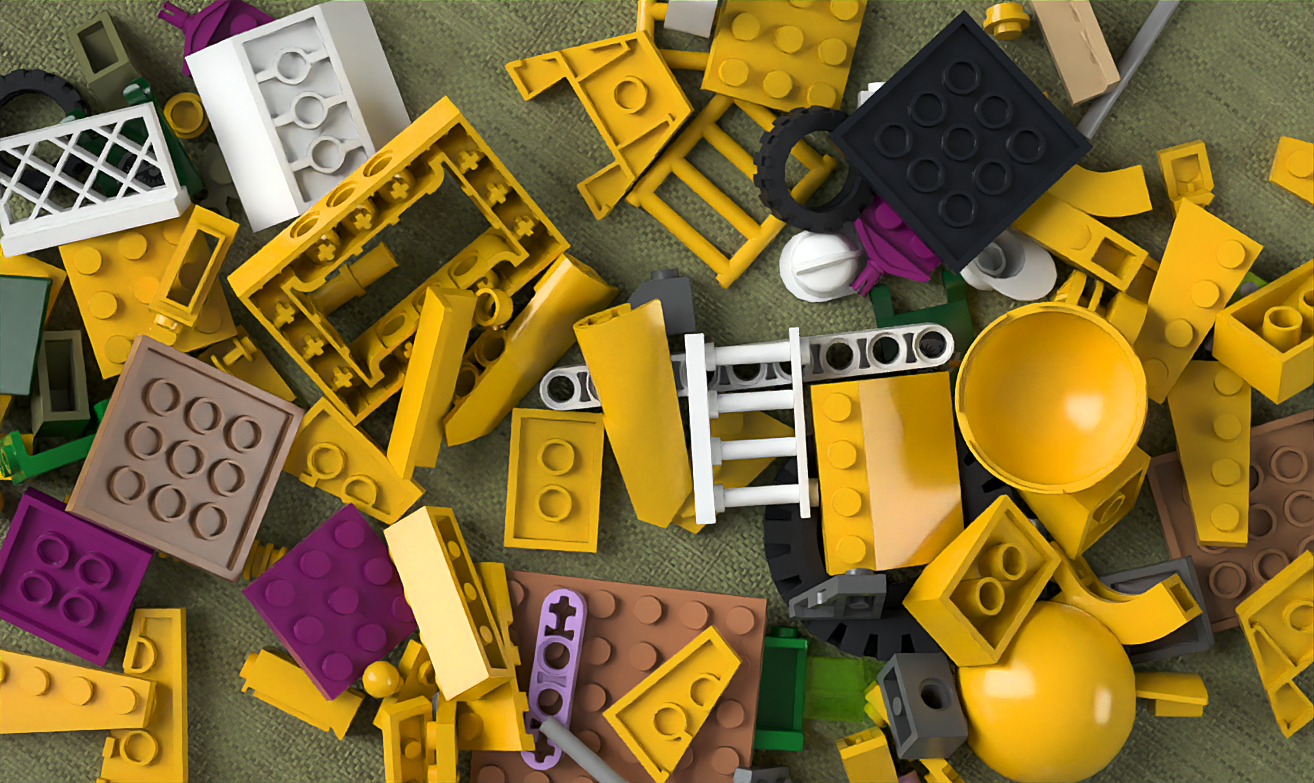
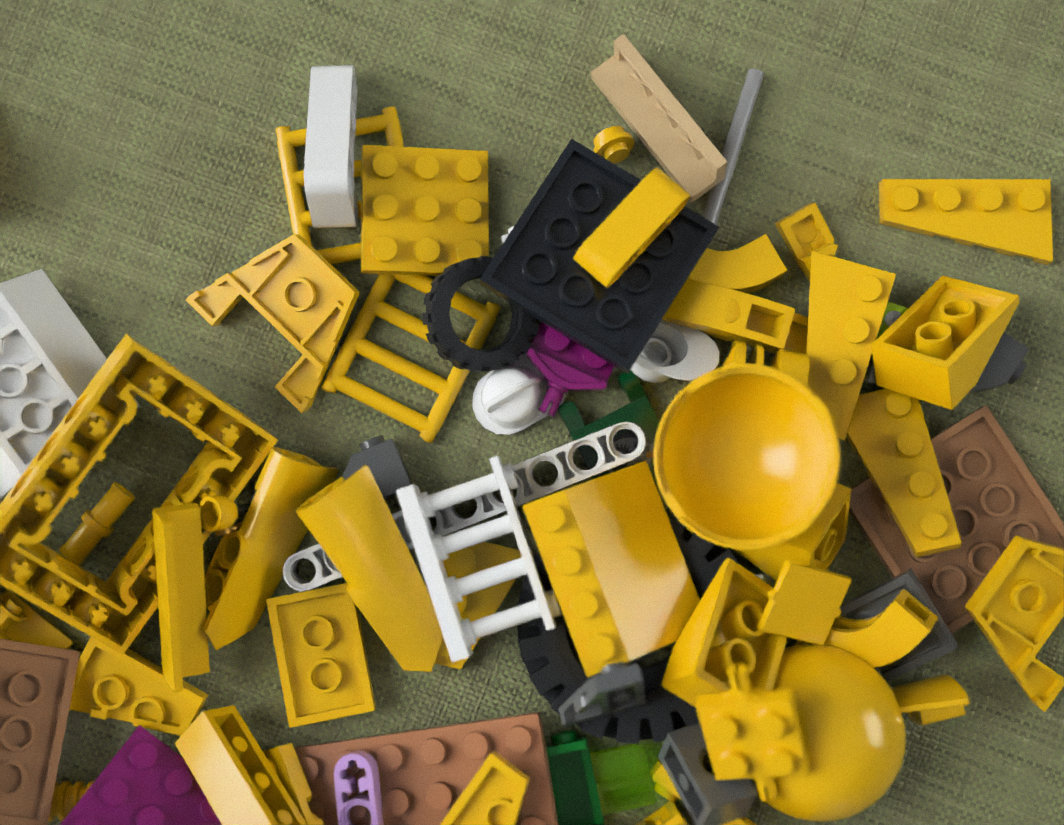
camera: 10 degrees left, 5 degrees down
(980, 674) = (753, 733): none -> yellow plate
(1001, 126) = (632, 227): none -> yellow beam
(1069, 560) = (804, 602): none -> yellow piece

